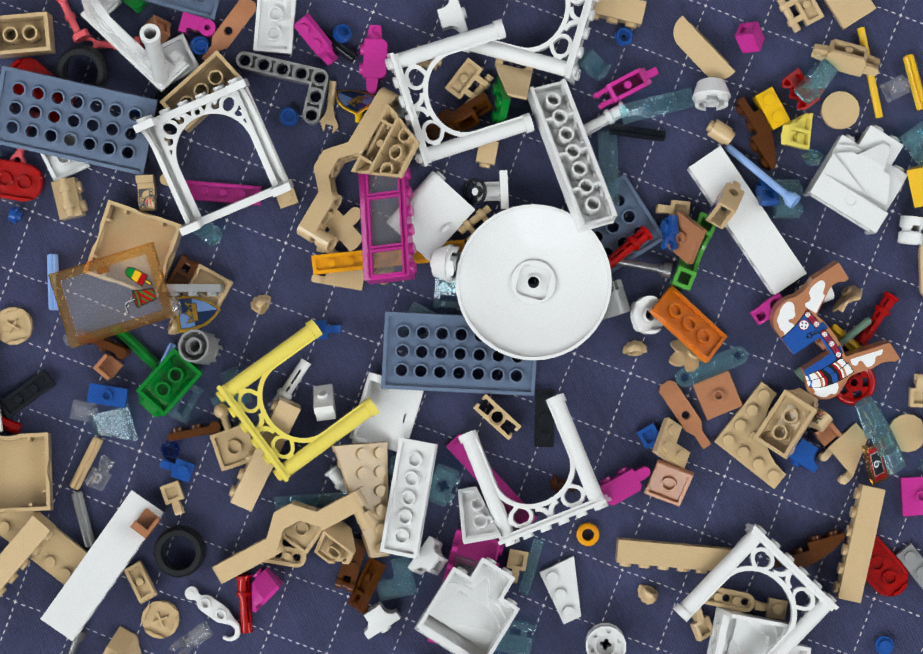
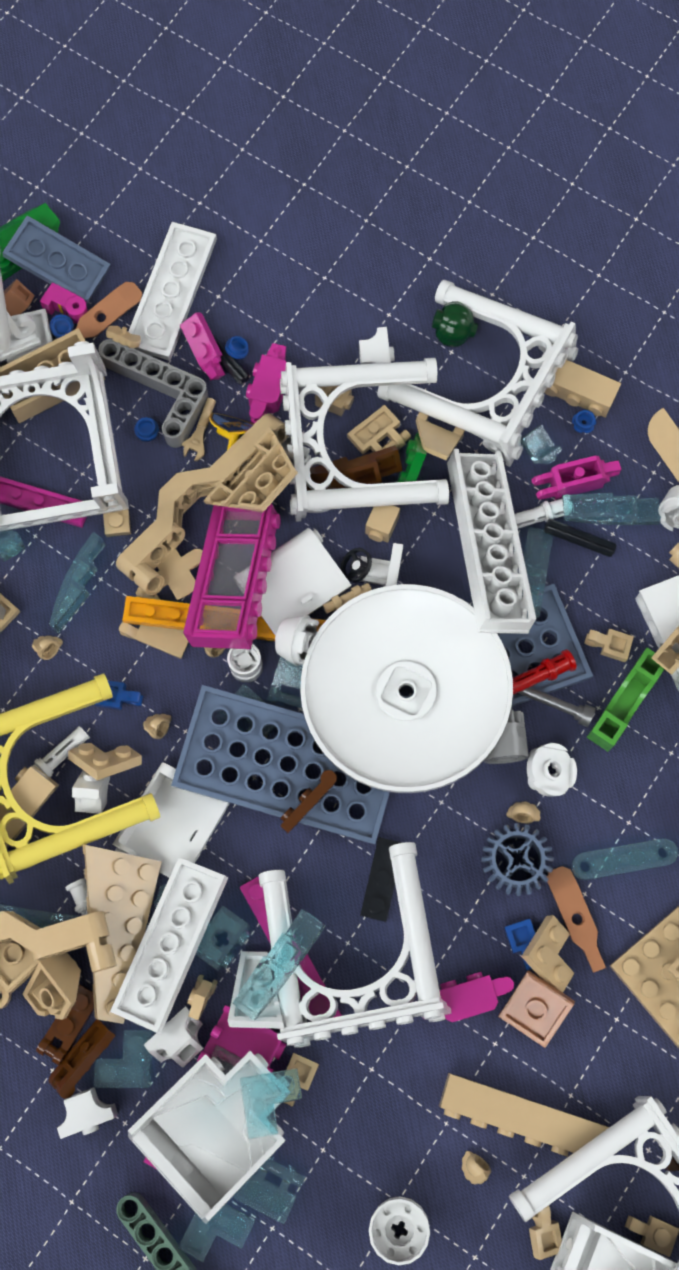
camera: 15 degrees right, 15 degrees down
(252, 47) = (123, 336): none -> tan piece
(268, 259) = (73, 590): none -> clear light blue slope
(327, 384) = (102, 764): none -> tan plate
(357, 344) = (157, 725): none -> tan piece
(411, 288) = (245, 664): none -> white wheel
(438, 526) = (199, 996): none -> tan plate
(481, 378) = (309, 800): none -> reddish brown plate
(488, 496) = (279, 964): none -> clear light blue slope
(497, 425) = (319, 850): tan piece -> none
(497, 583) = (261, 1094): none -> clear light blue plate
(531, 566) = (317, 1087): clear light blue axle -> none
(557, 483) = (379, 970): reddish brown plate -> none
(562, 586) = (356, 1128): white wing -> none
(593, 540) = (419, 1053): light orange piece -> none
(620, 377) = (527, 867): none -> sand blue gear
(669, 230) = (600, 663): blue plate -> none
(683, 357) = (593, 835): tan plate -> none
(688, 324) = (603, 794): orange plate -> none
(689, 238) = (619, 677): nougat plate -> none
(717, 395) = (626, 901): nougat plate -> none
(733, 601) = (599, 1209): tan plate -> none

